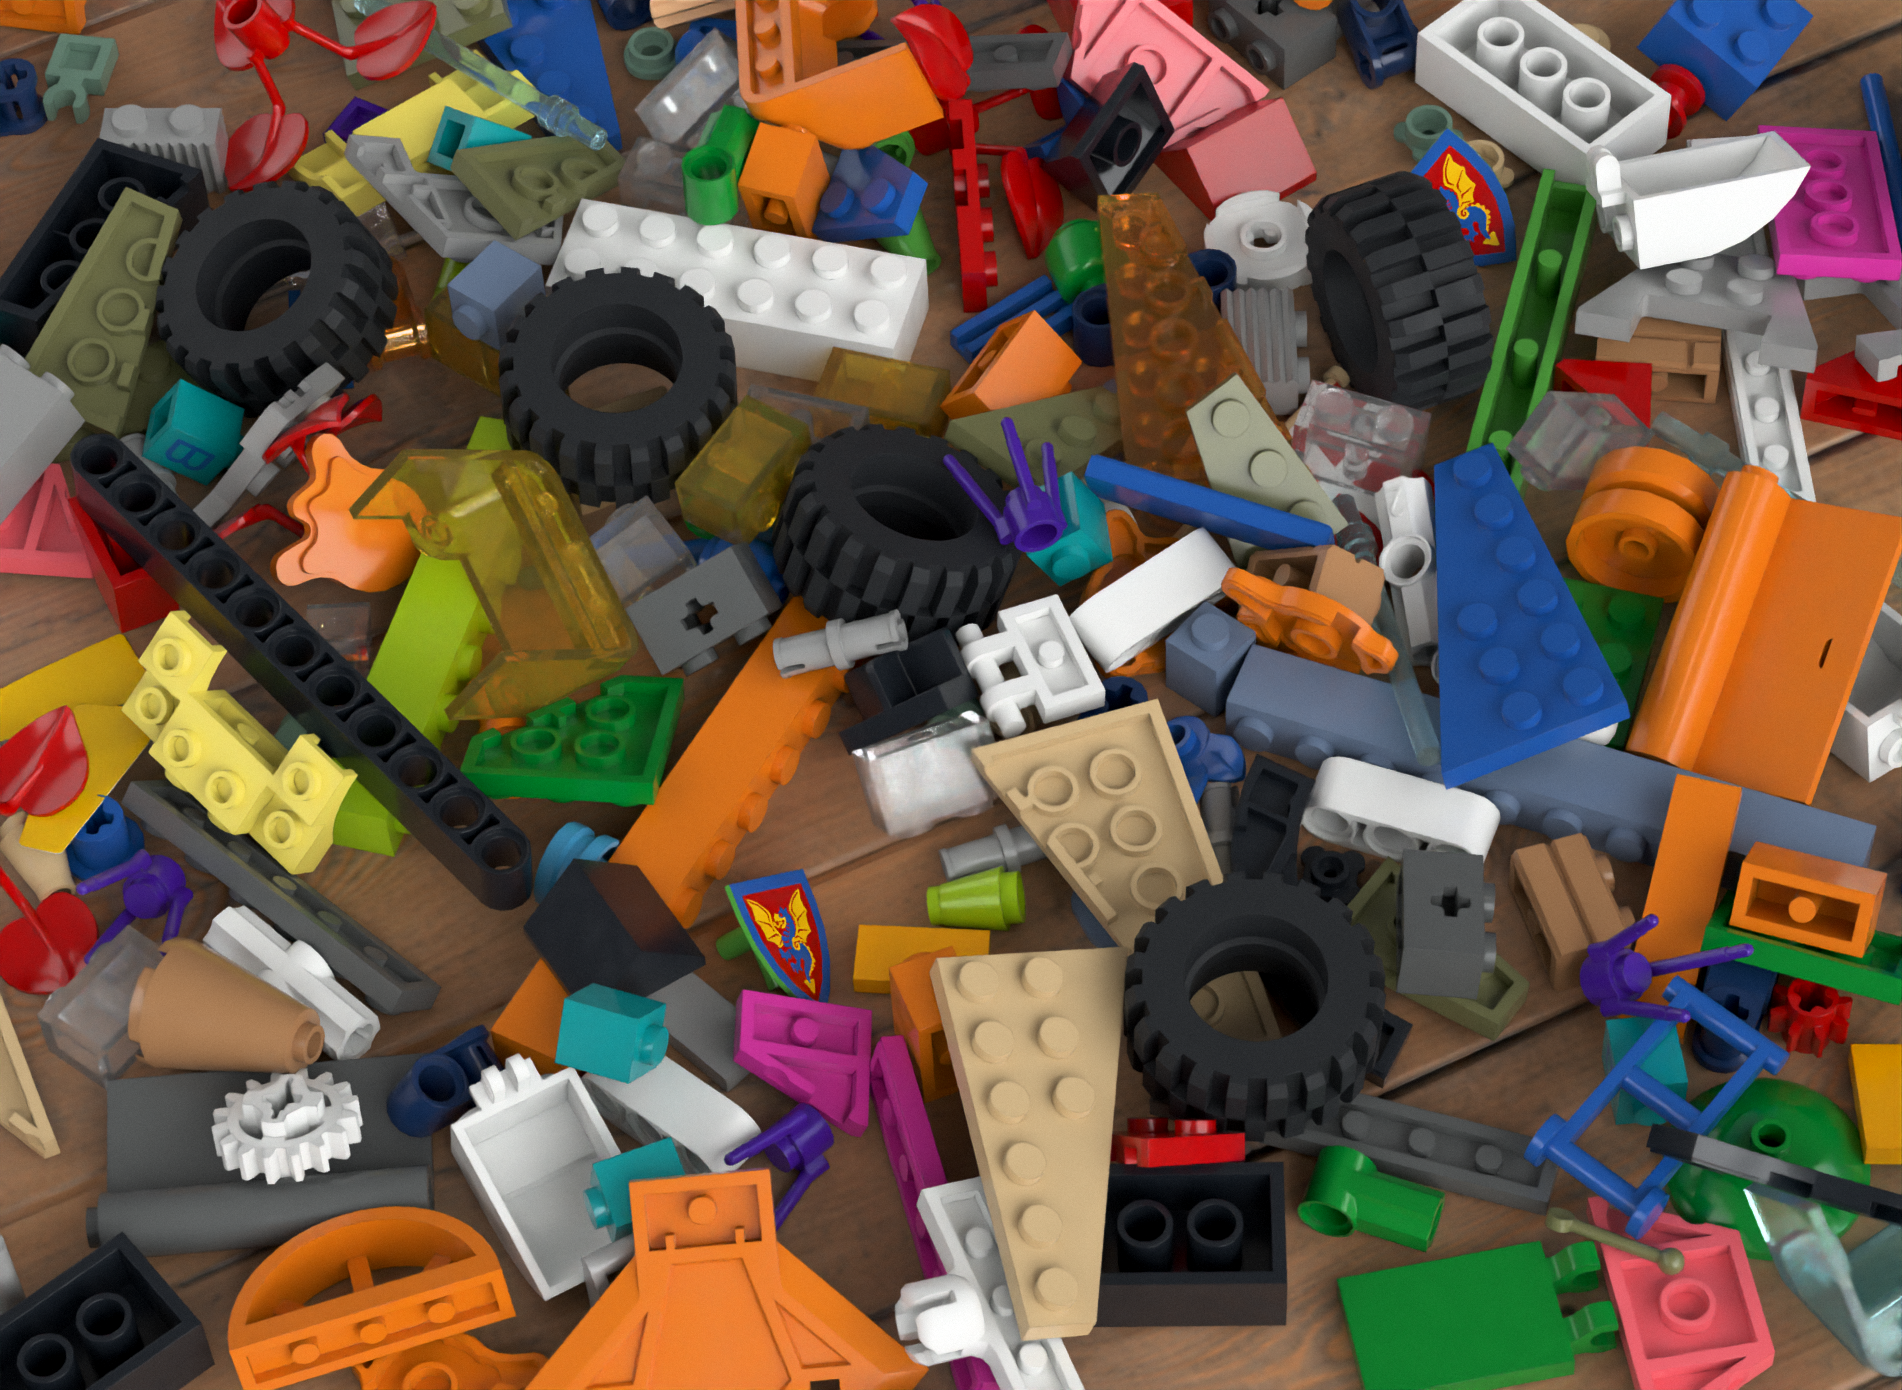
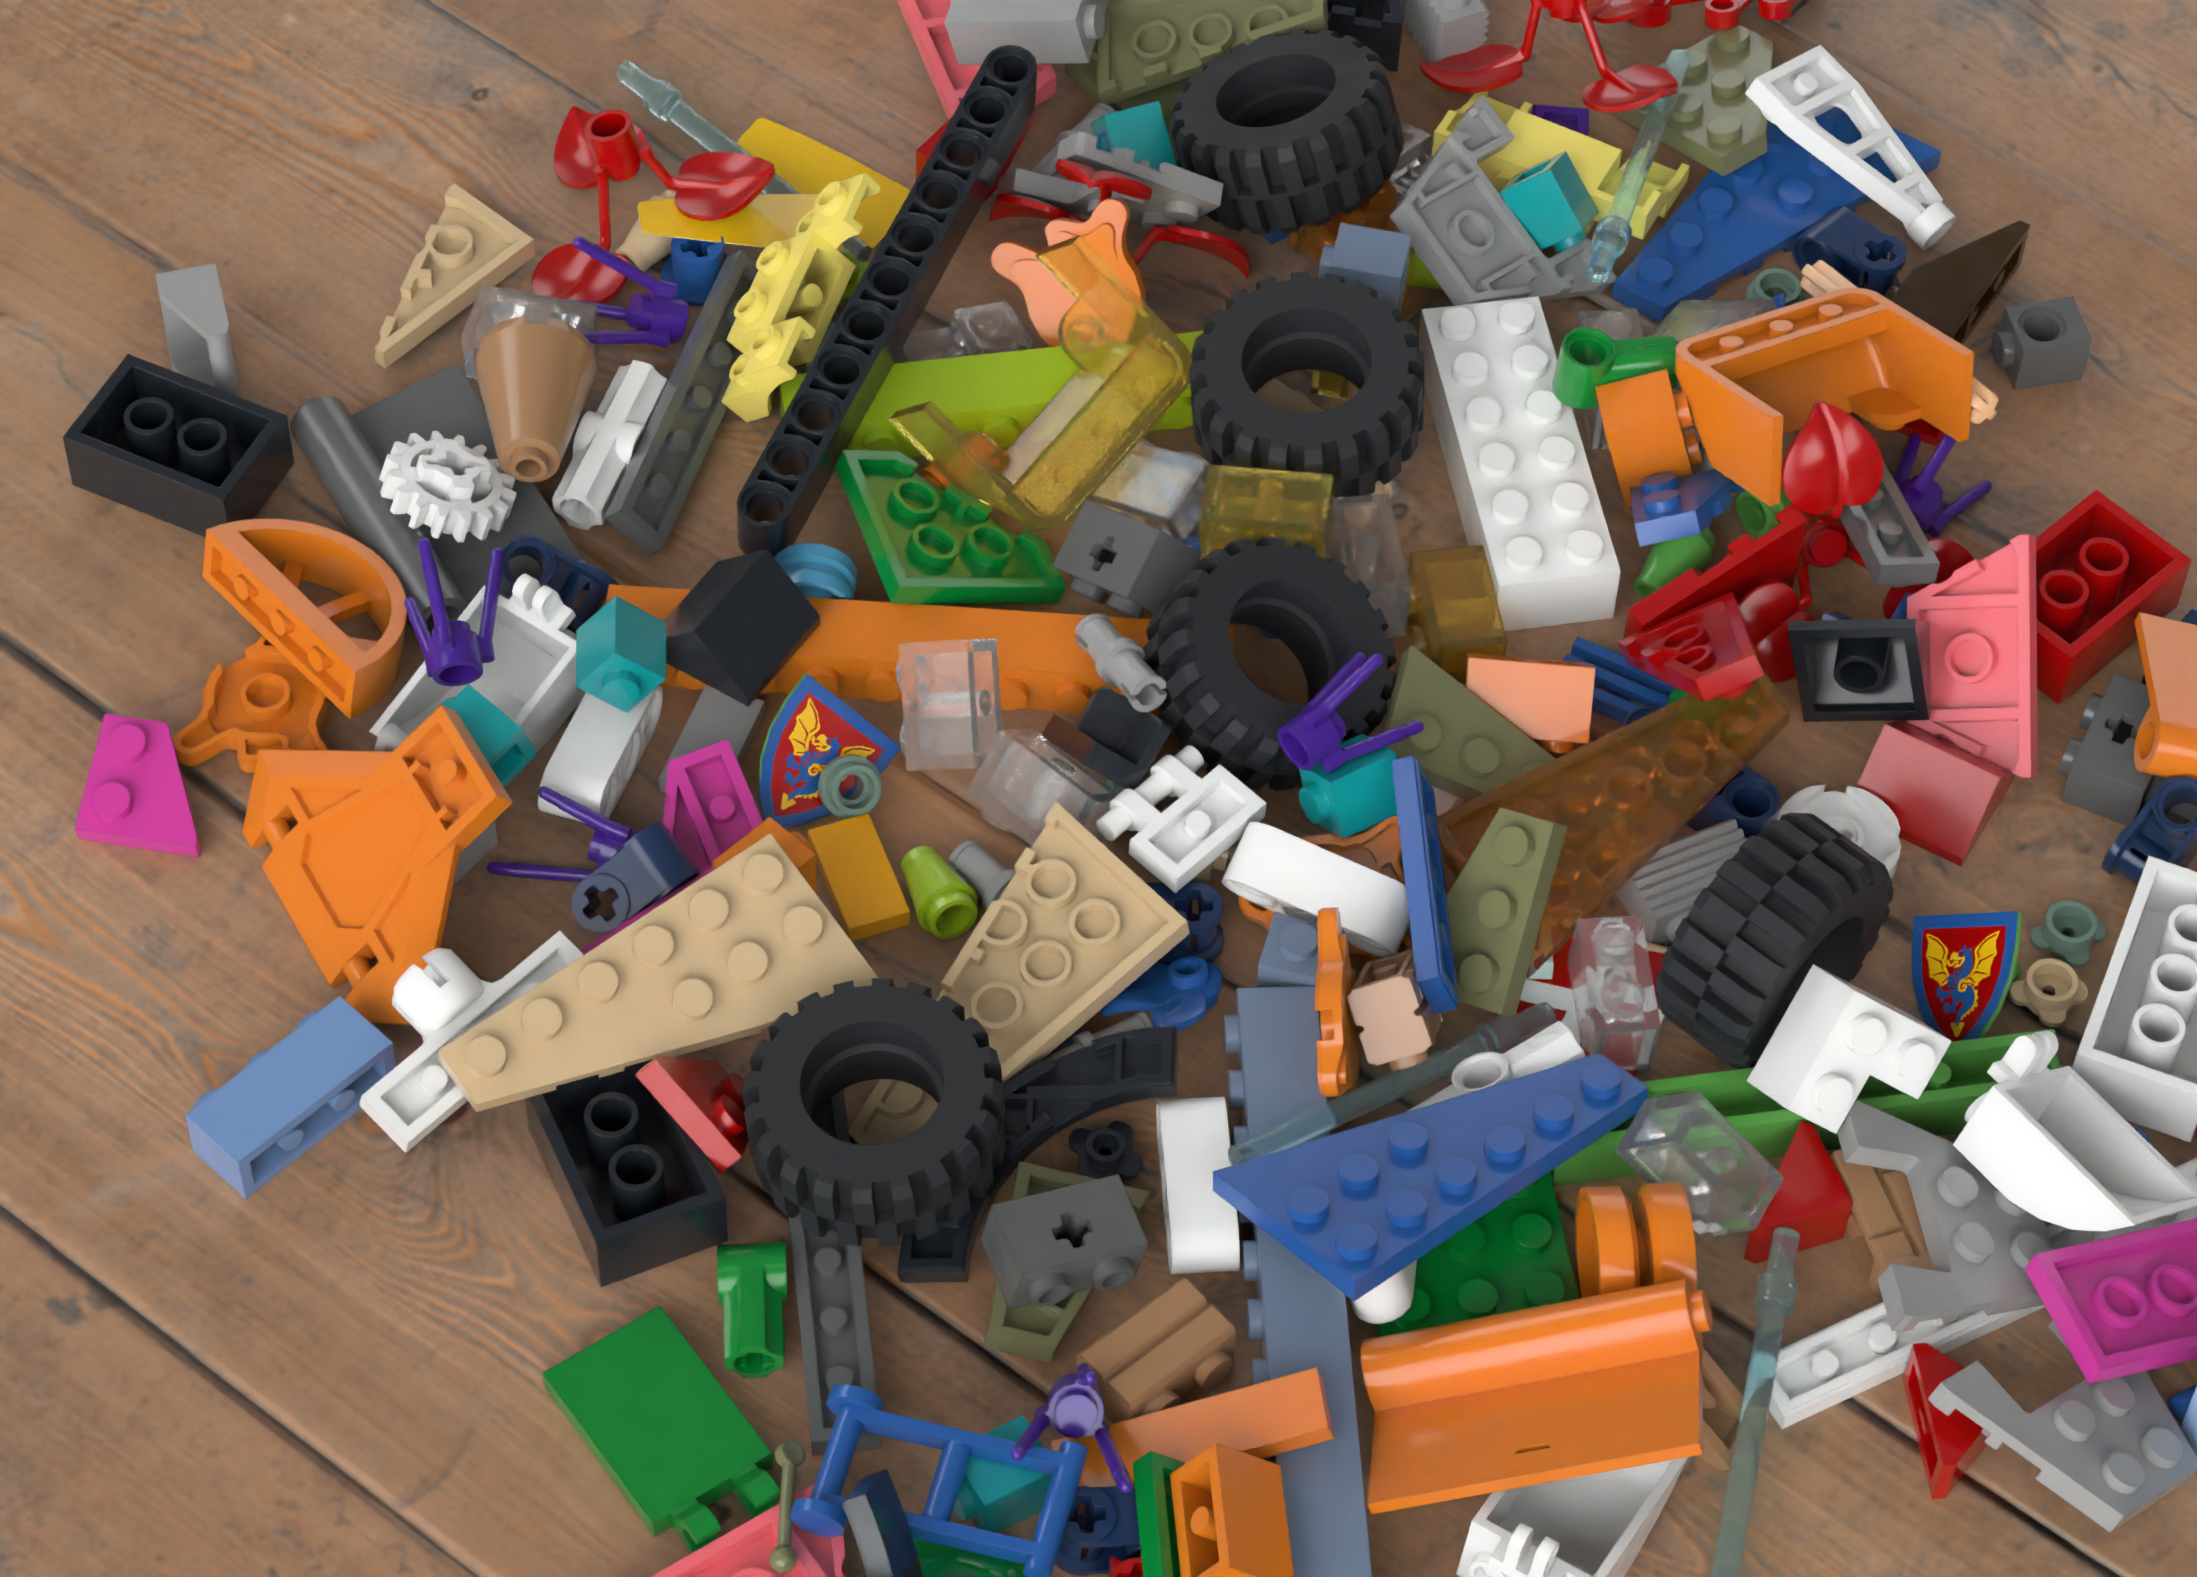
camera: 60 degrees right, 0 degrees up
(522, 1166) = (455, 651): none -> dark purple plant
(536, 178) = (1532, 252): olive wing -> none
(800, 799) = (948, 702): none -> clear brick
(829, 923) = (866, 792): none -> sand green plate
(860, 1125) = (640, 874): none -> dark blue piece
(1060, 226) = (1699, 651): none -> red wing
(1539, 292) = (1832, 1045): none -> white brick

